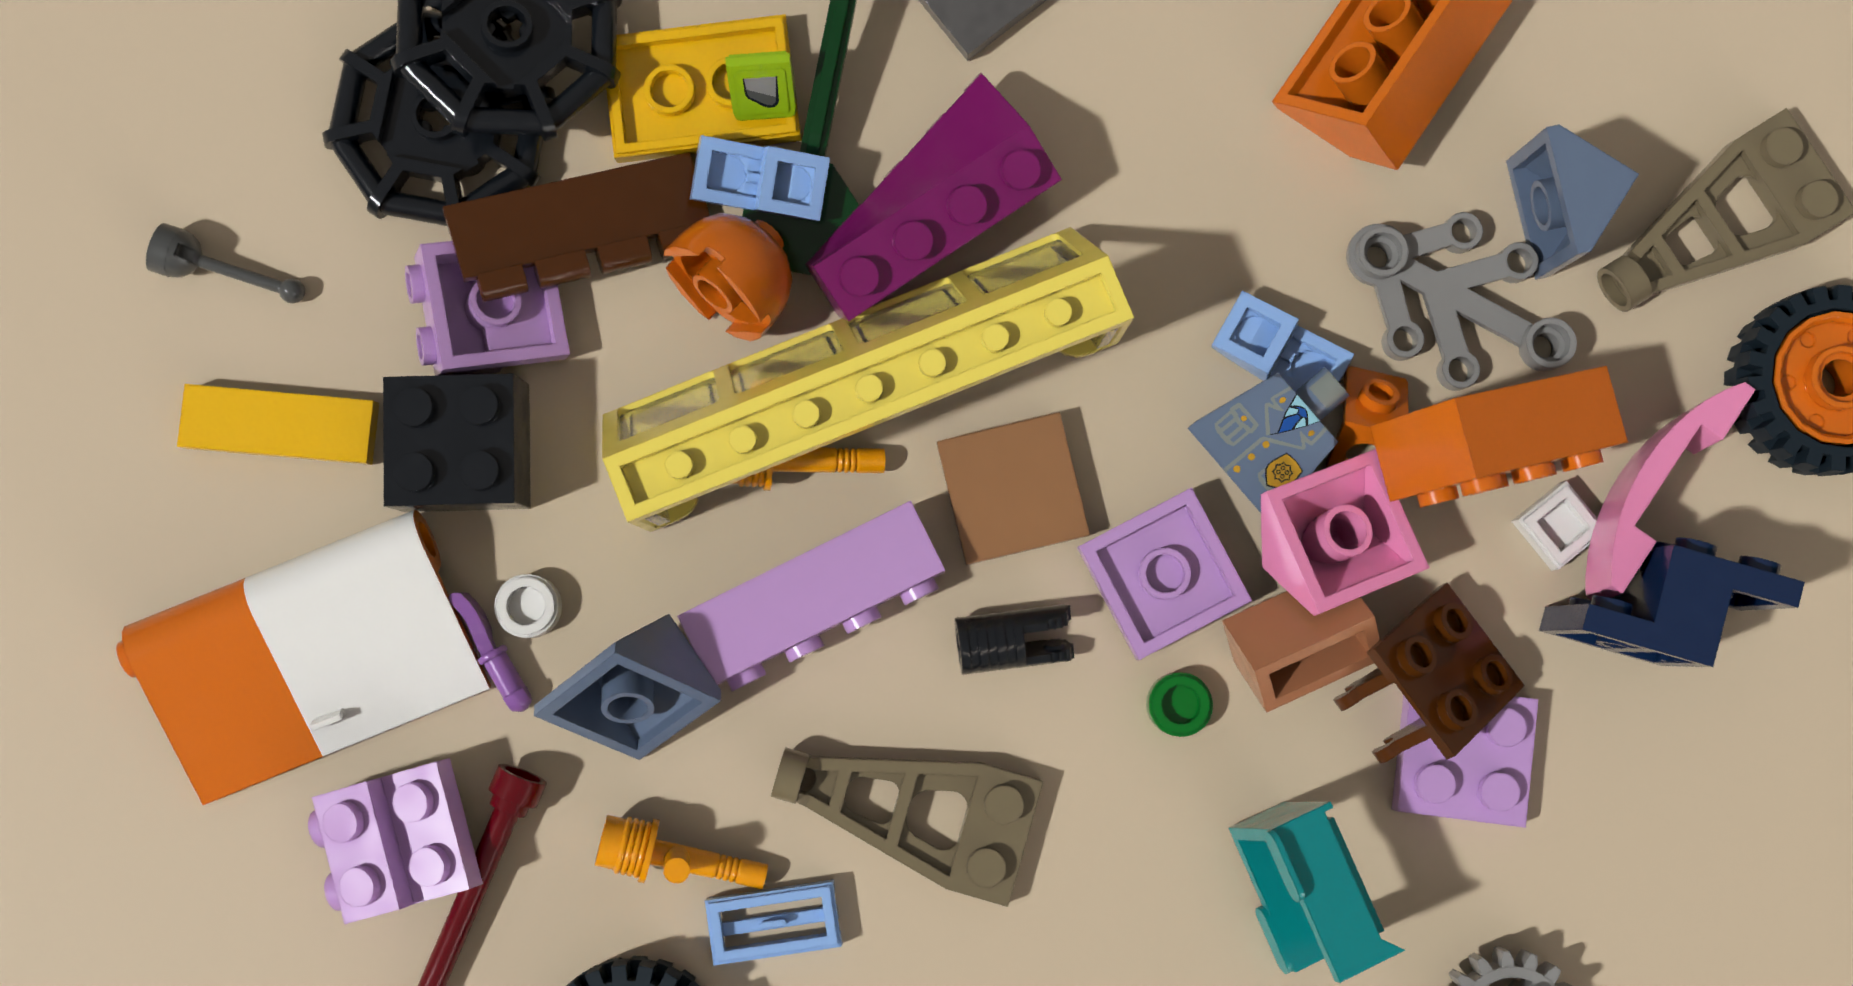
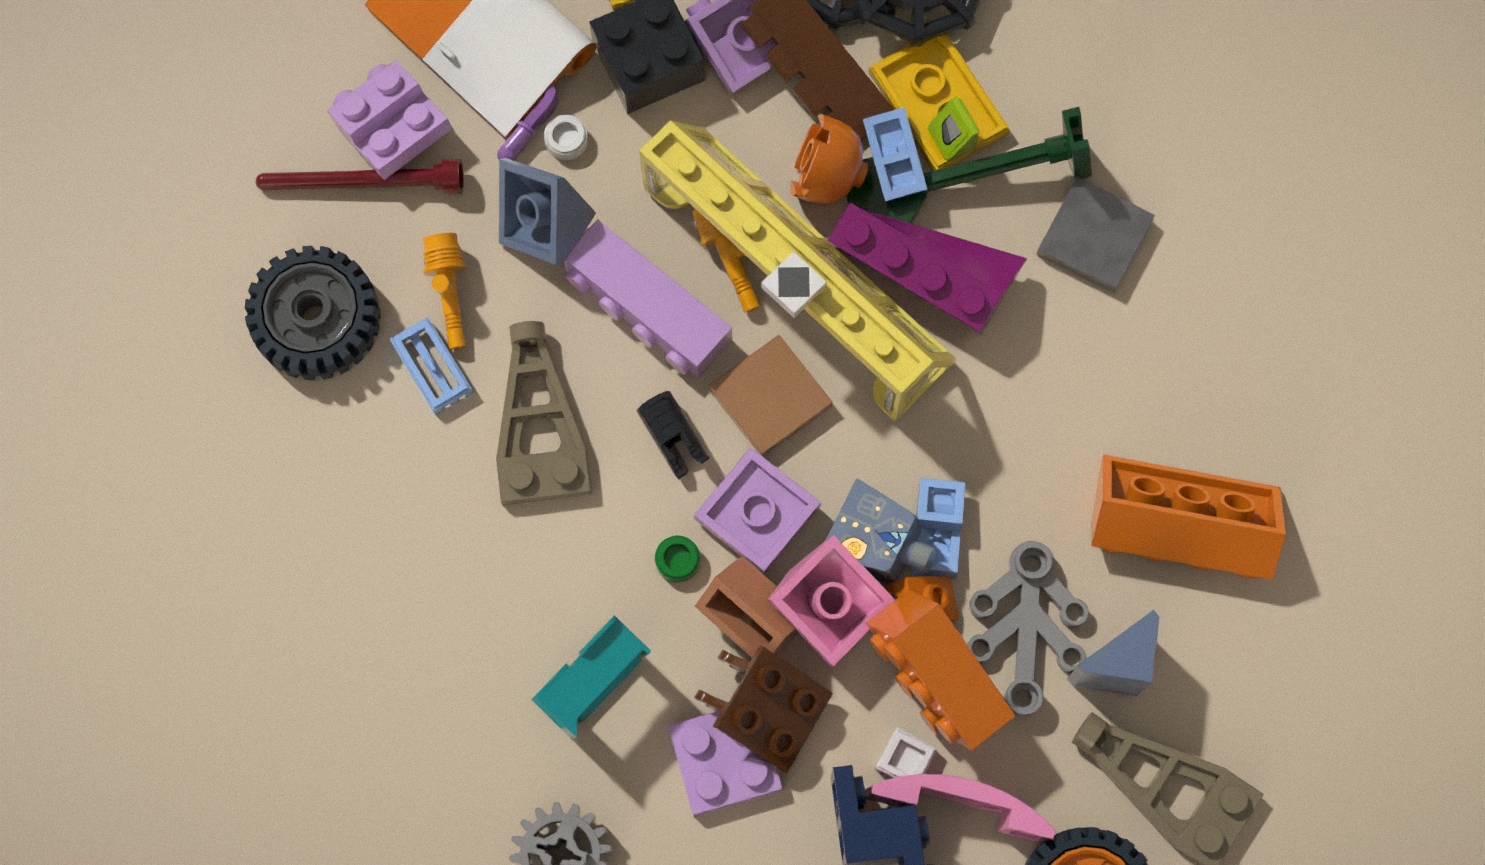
camera: 70 degrees right, 10 degrees down
(923, 393) = (793, 284): none -> white tile

